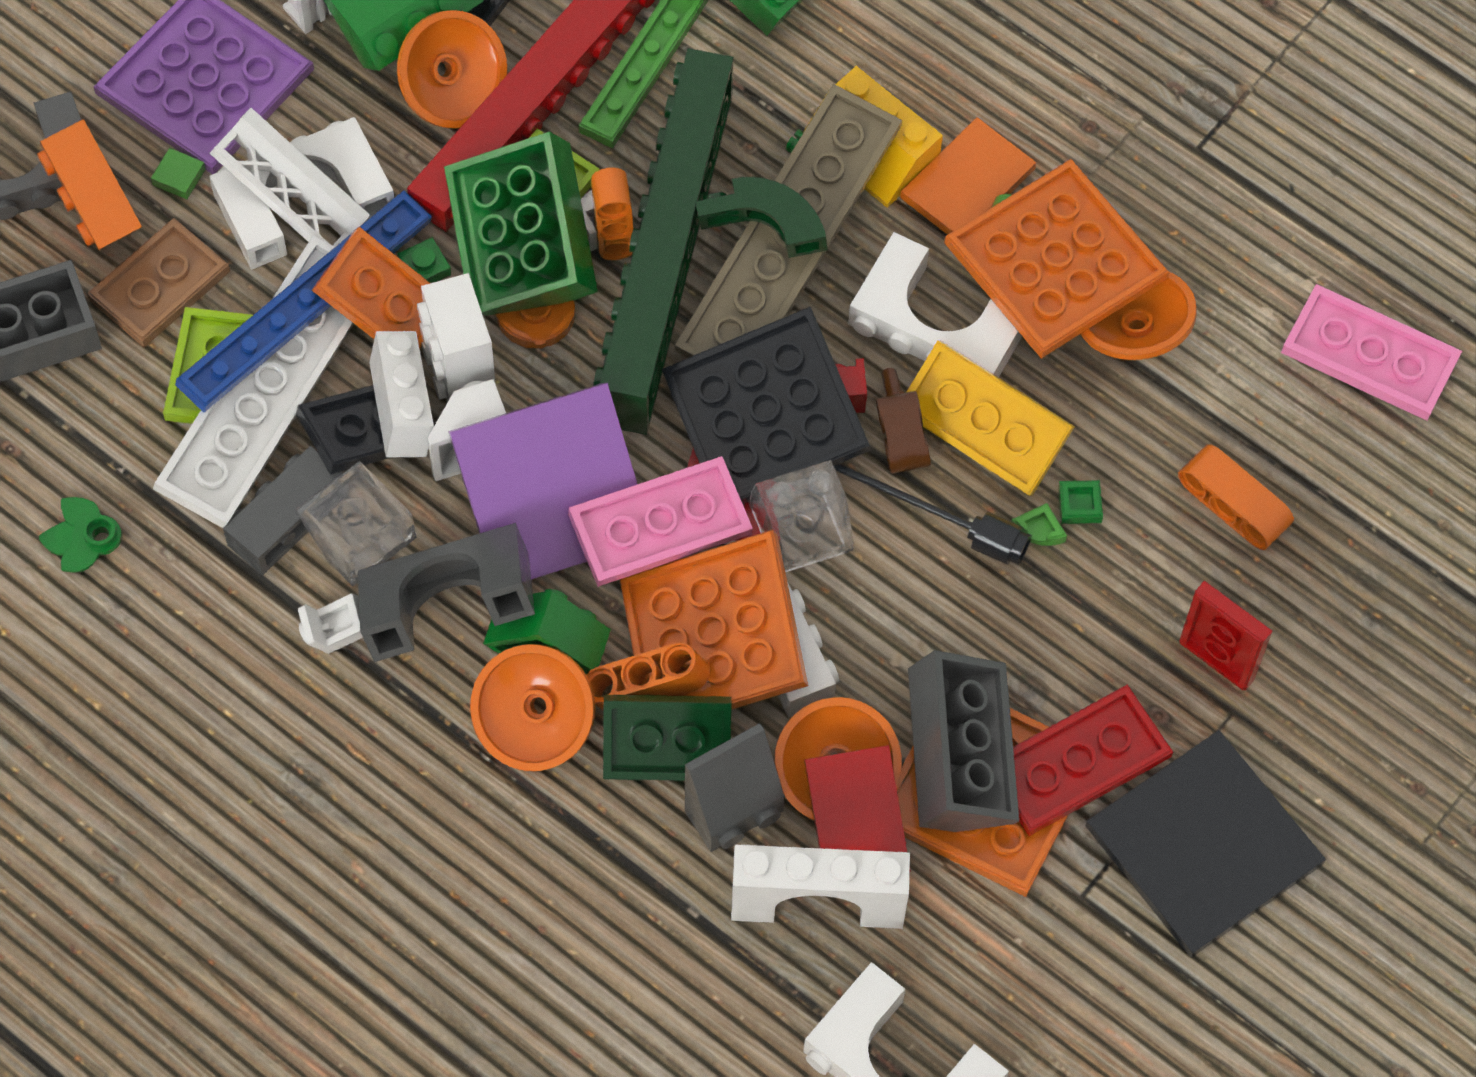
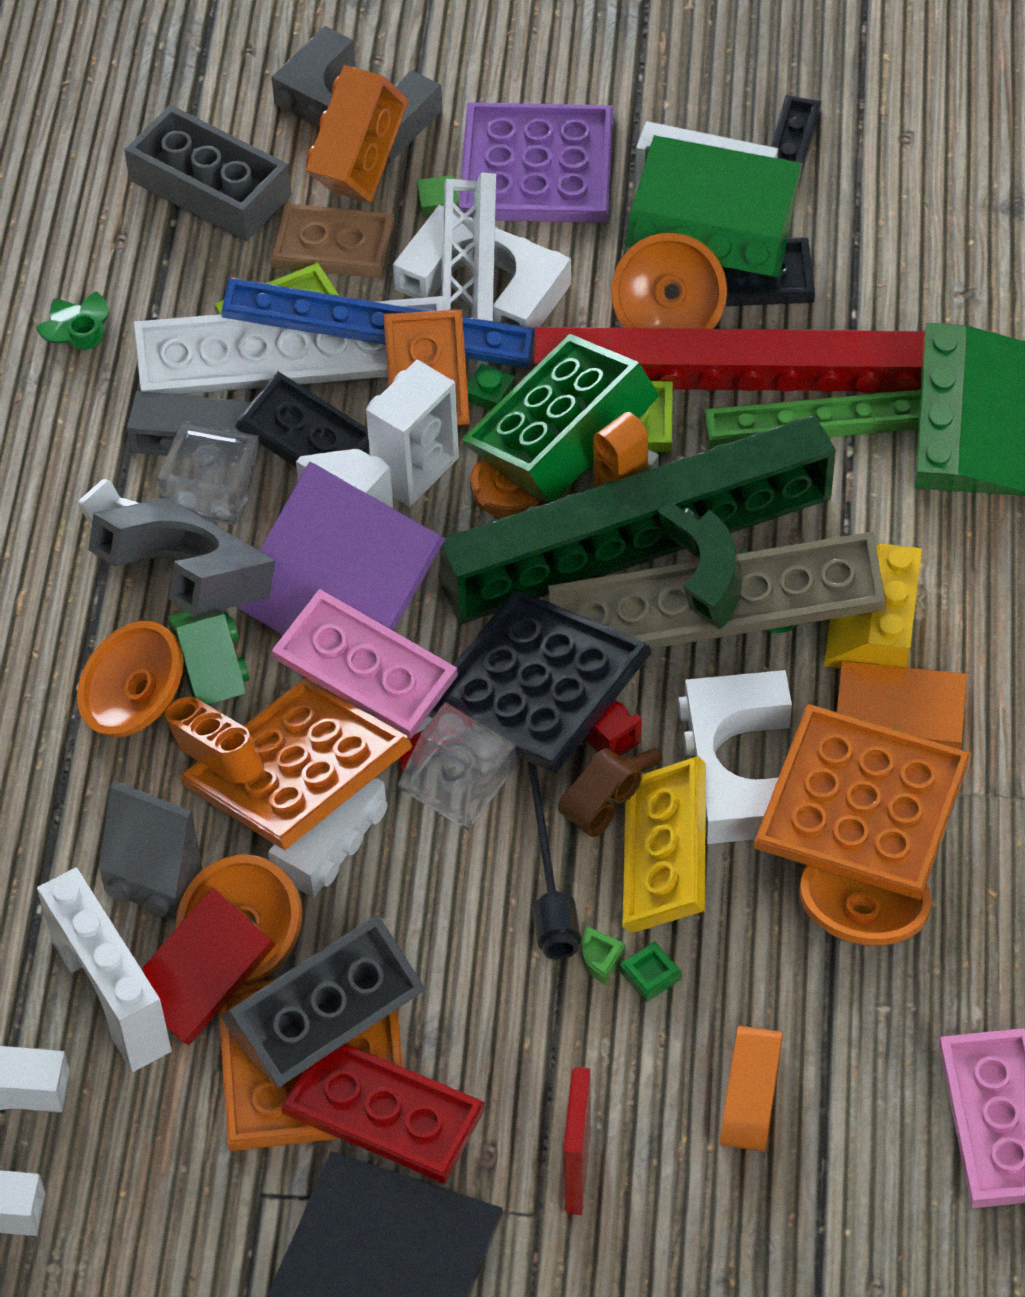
camera: 60 degrees right, 10 degrees down
(401, 394) = (333, 426): white brick -> none
(660, 734) = (171, 769): dark green plate -> none

